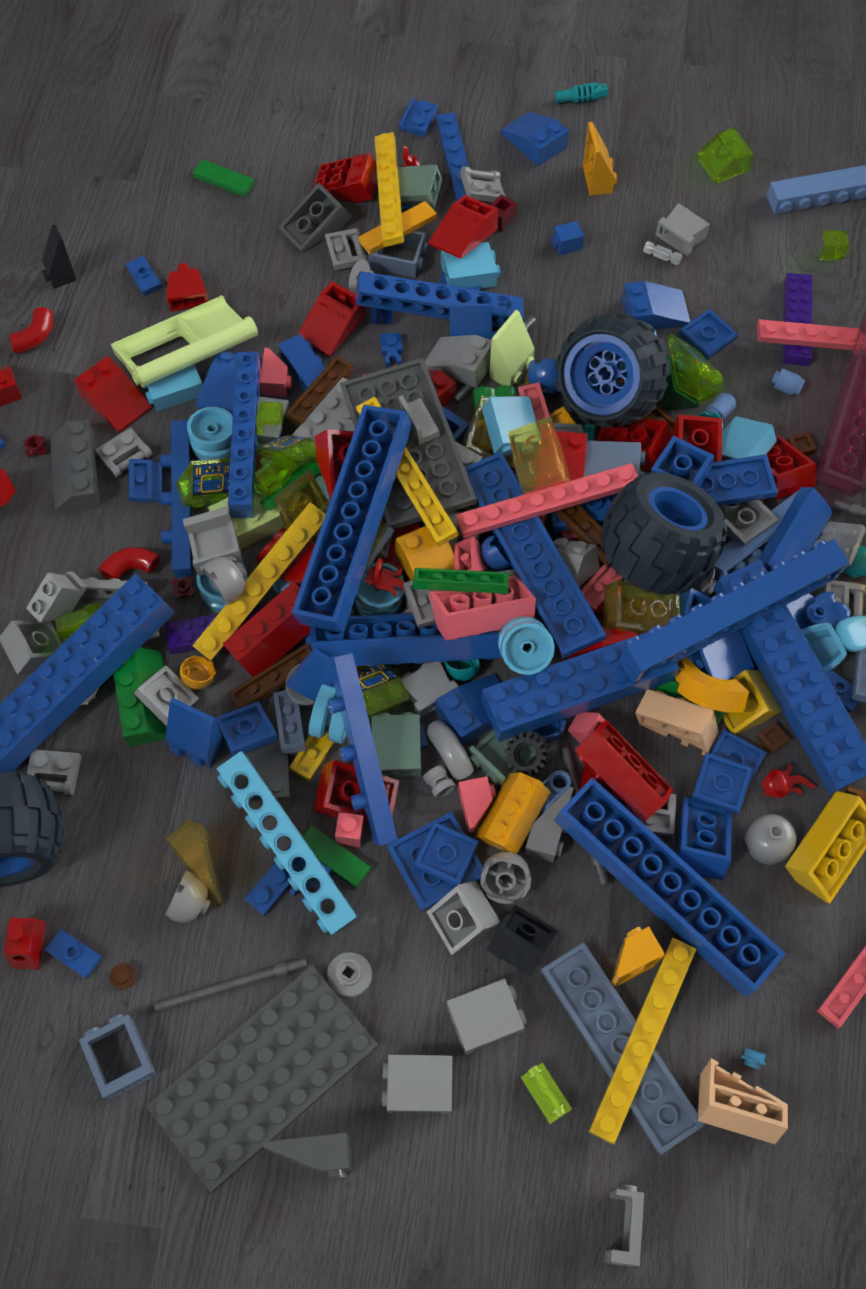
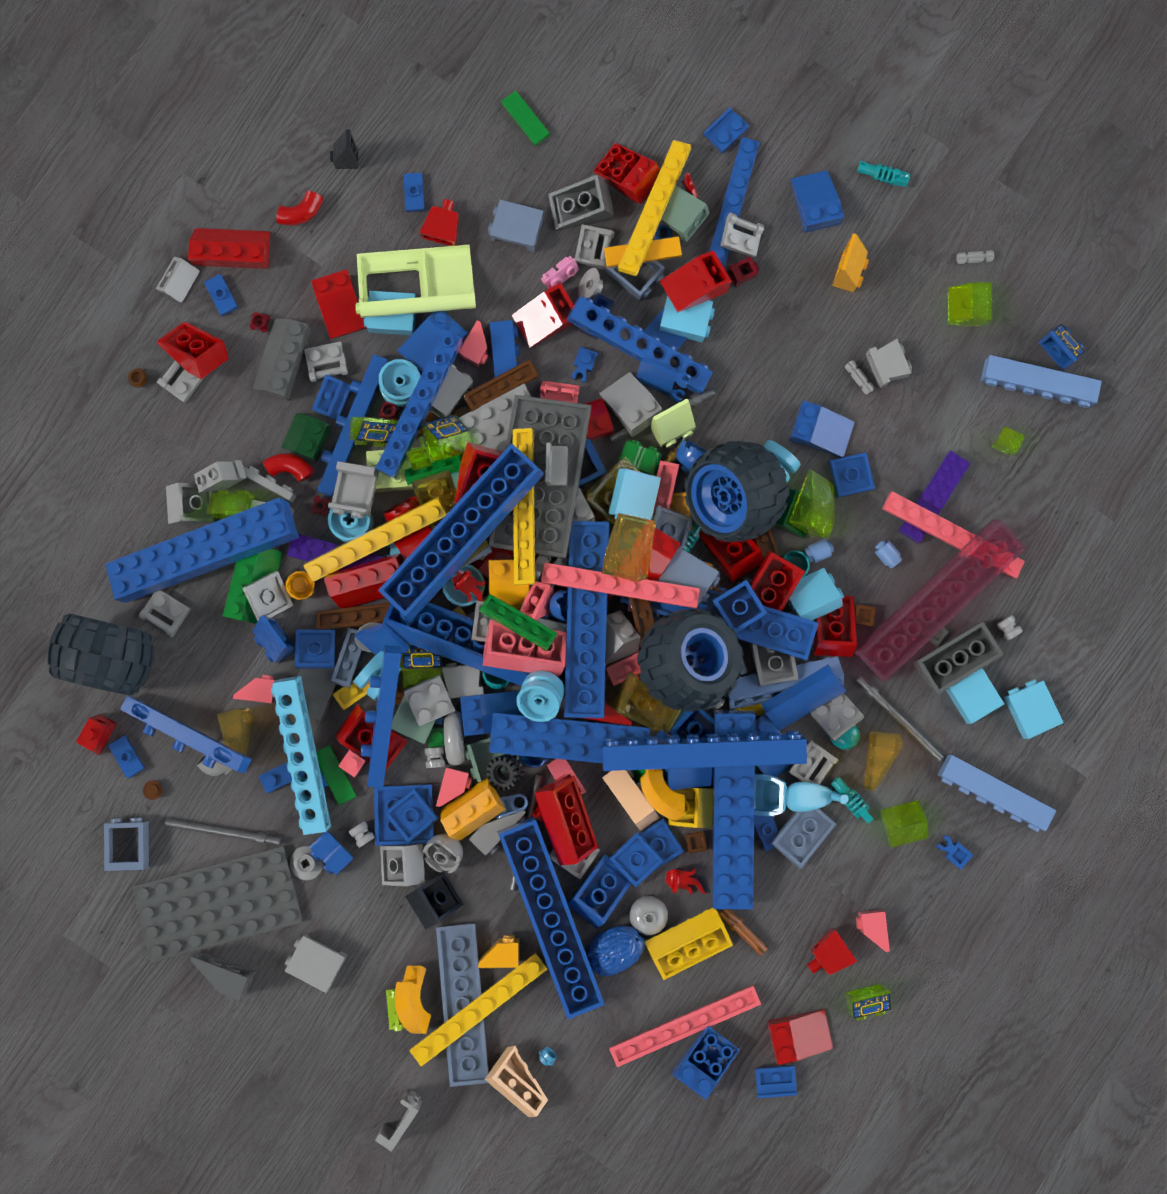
camera: 25 degrees right, 20 degrees up
(135, 525) = (306, 436): none -> dark green slope
(137, 880) = (185, 735): none -> piece
(201, 803) = (257, 690): none -> coral slope
(226, 578) = (346, 530): light grey cylinder -> none
(260, 258) = (516, 224): none -> sand blue panel
(269, 413) = (446, 396): clear neon green panel -> none
(328, 274) = (567, 269): none -> bright pink hinge
(374, 943) = (331, 853): none -> blue brick
(399, 905) = (361, 834): none -> light grey wheel
(403, 715) = (429, 700): none -> light grey plate
(431, 759) = (436, 738): none -> green plate
(486, 1015) = (382, 940): light grey panel -> none
(558, 1072) = (408, 1001): none -> light orange arch
(567, 238) = (785, 325): blue brick -> none
(704, 123) = (975, 257): none -> light grey axle
(760, 890) = (615, 950): none -> blue hair
(827, 154) = (1062, 346): none -> blue slope
(828, 608) = (794, 773): blue plate -> none

